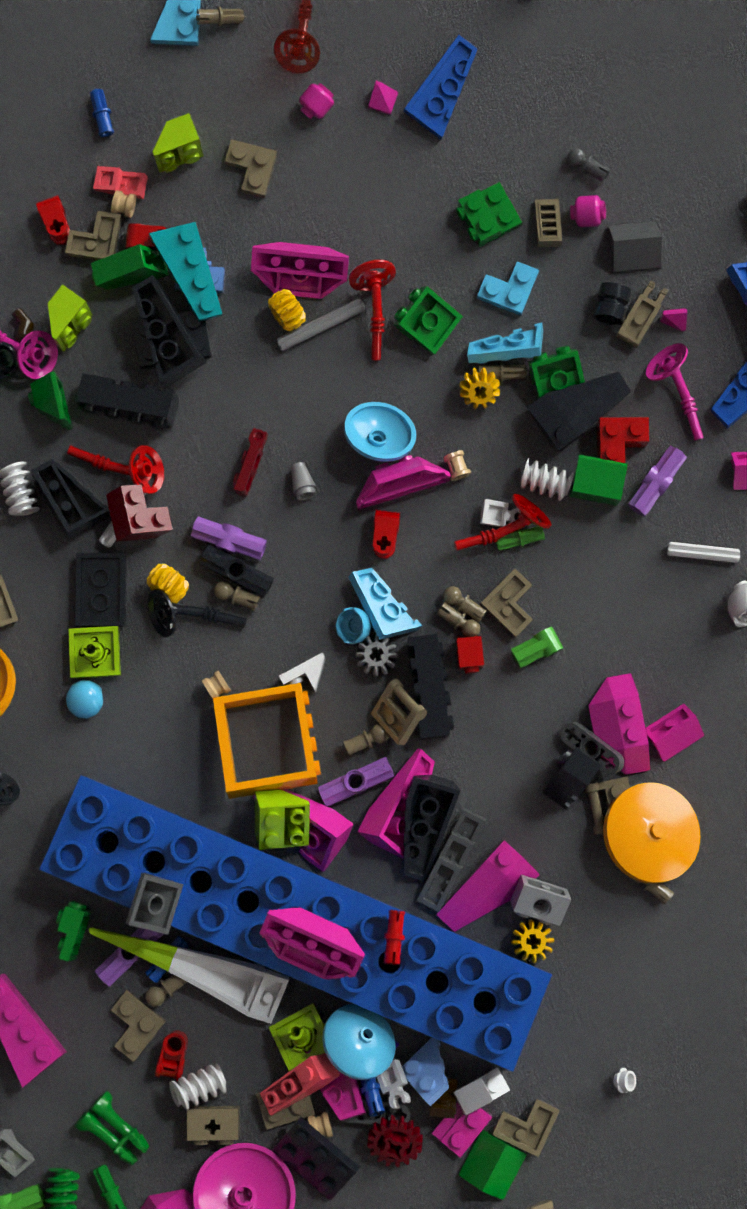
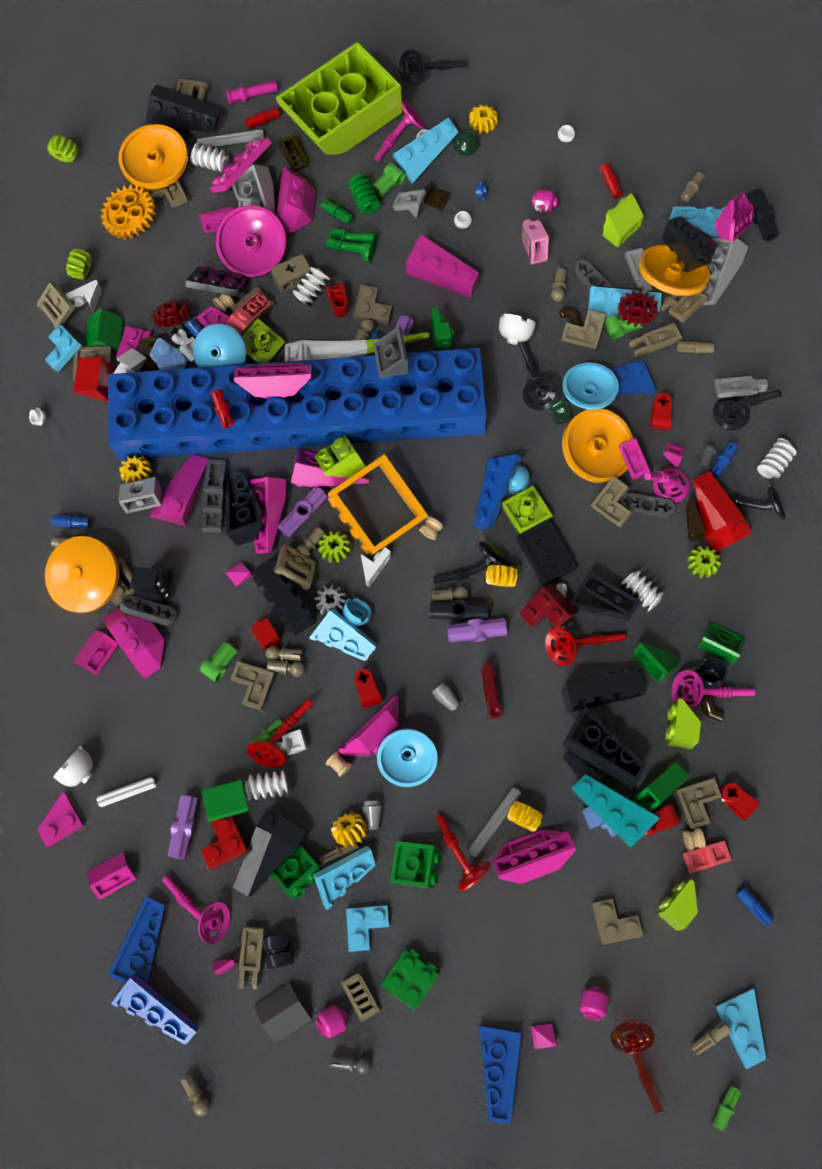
camera: 155 degrees right, 10 degrees down
(111, 702) = (496, 478): none -> blue wing
(340, 711) = (331, 541): none -> lime gear
(446, 396) = (372, 814): none -> light grey cone
(467, 745) = (239, 574): none -> dark pink slope
(533, 1095) = (92, 377): none -> red slope
(548, 1164) = (65, 349): none -> medium azure plate
(639, 913) = (70, 521): none -> blue axle

